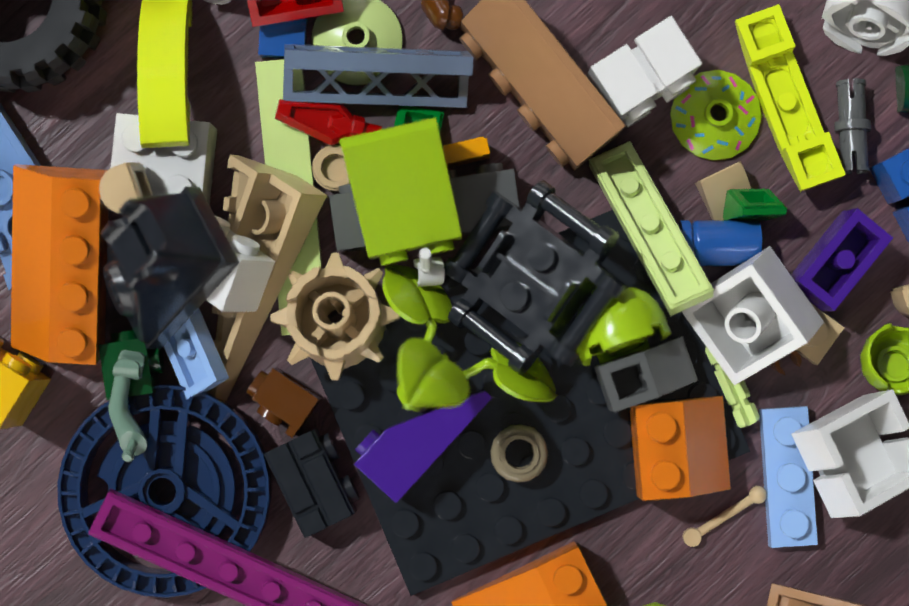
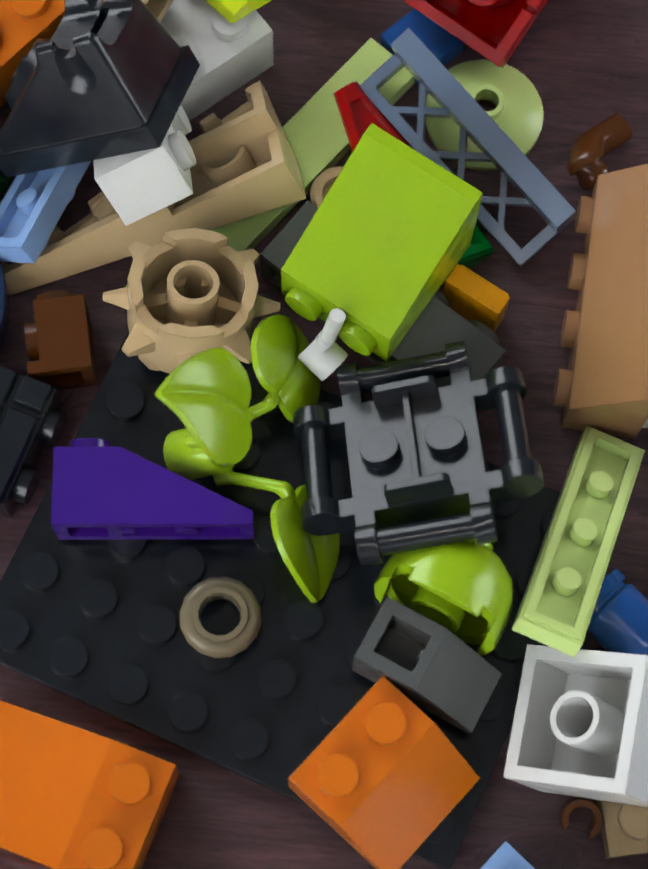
camera: 45 degrees right, 15 degrees down
(737, 396) = (494, 799): yellowish green axle -> none

